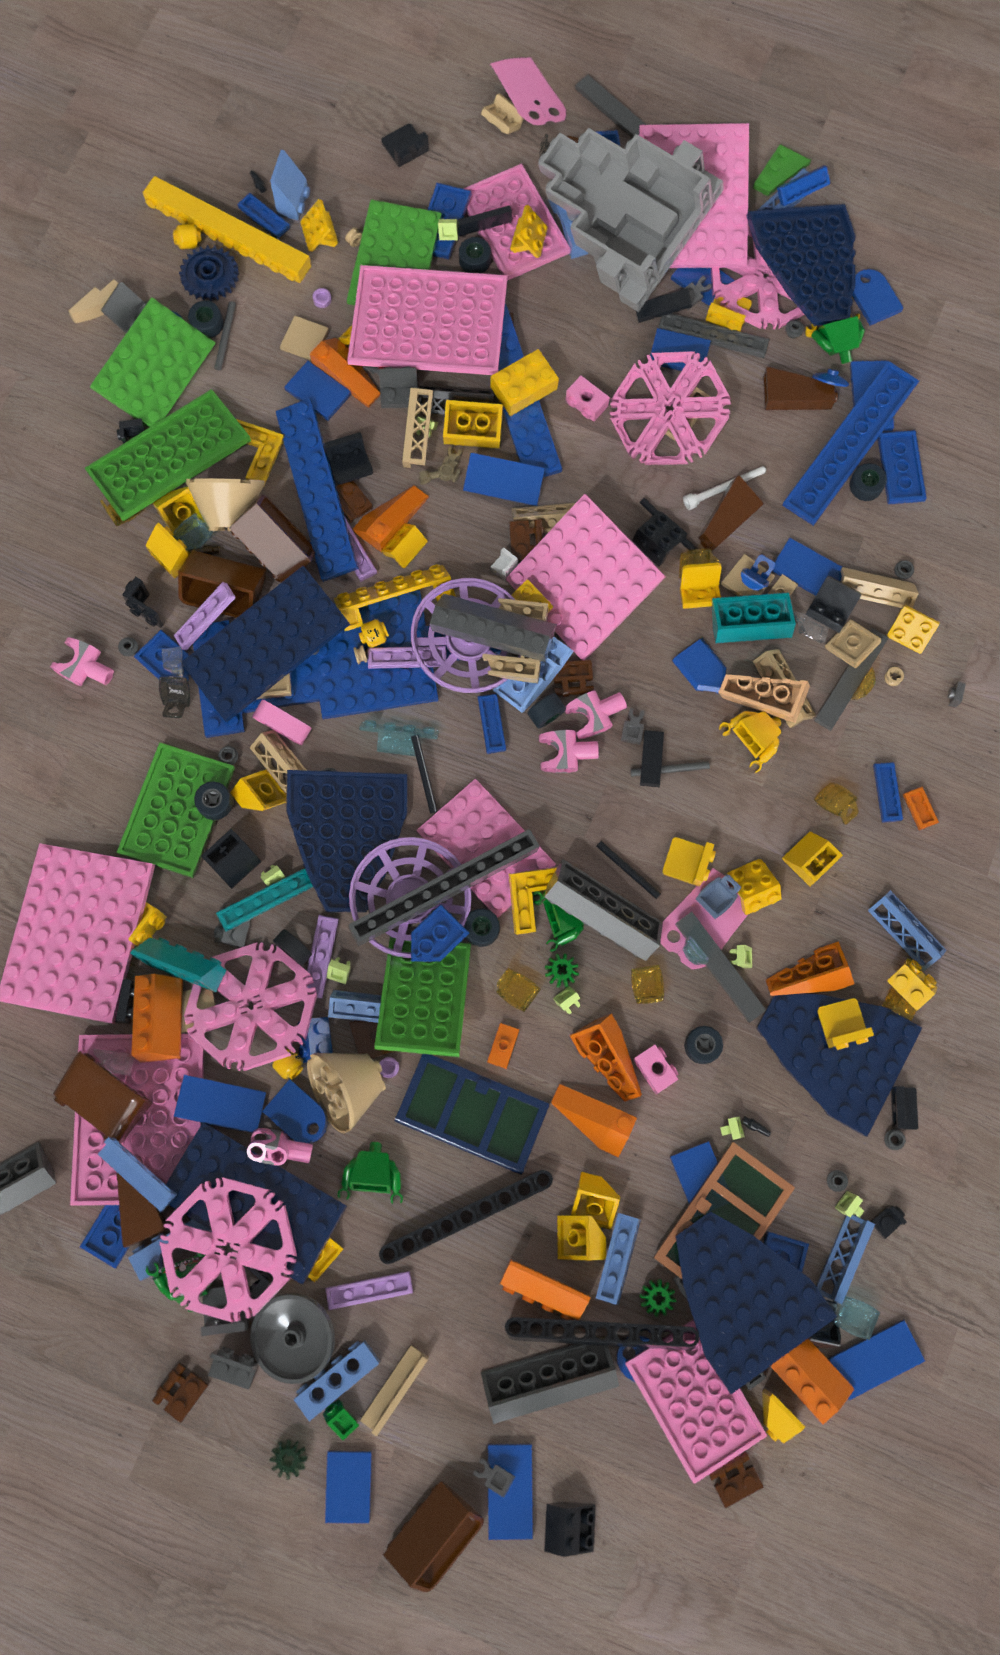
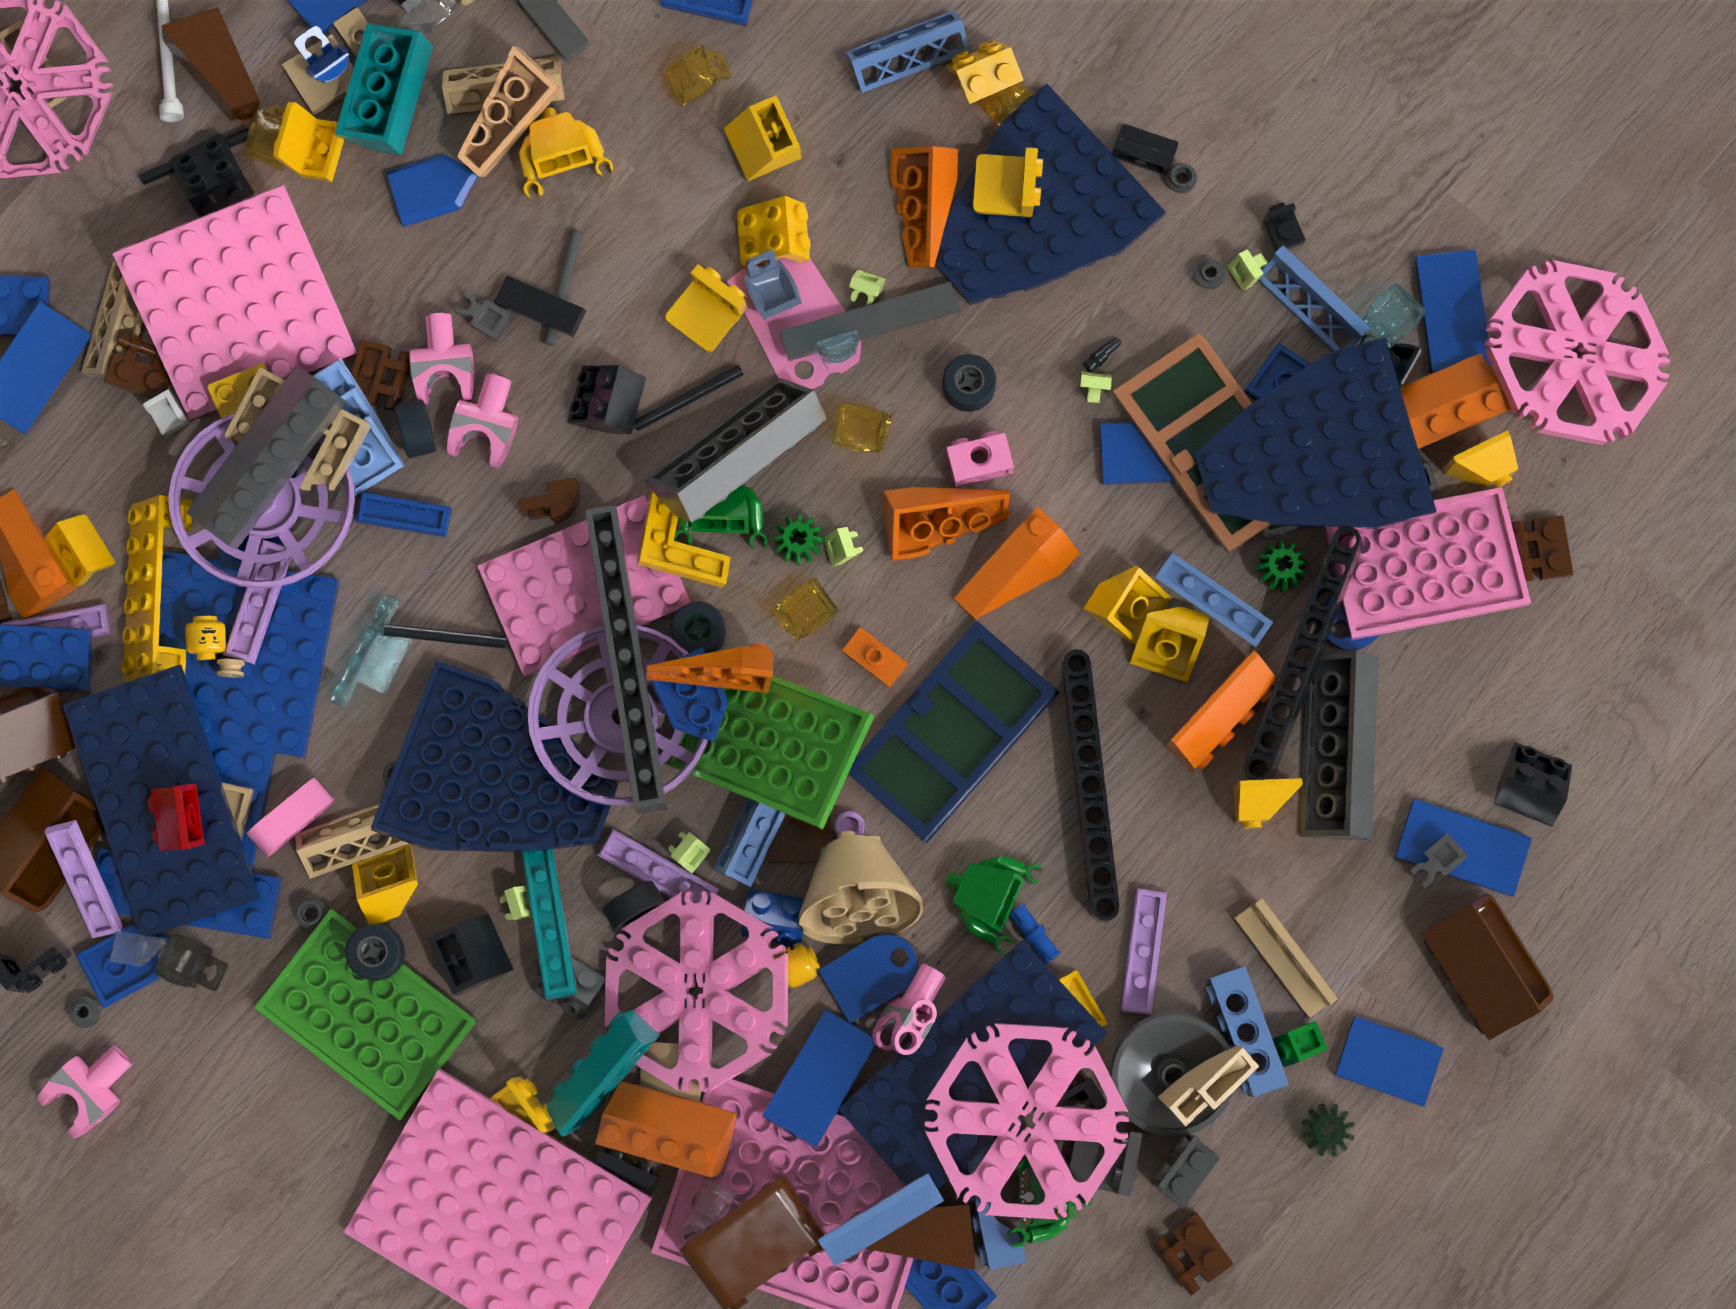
camera: 65 degrees left, 5 degrees up
(255, 654) = (176, 817): none -> red slope
(291, 1364) = (1208, 1084): none -> tan slope
(357, 1212) = (1034, 933): none -> blue pin
(460, 955) = (731, 668): none -> orange wedge
(494, 1338) = (1260, 799): none -> yellow slope
(533, 814) = (561, 501): none -> reddish brown brick
(608, 819) = (606, 399): none -> black slope
(865, 1456) = (1564, 367): none -> bright pink plate

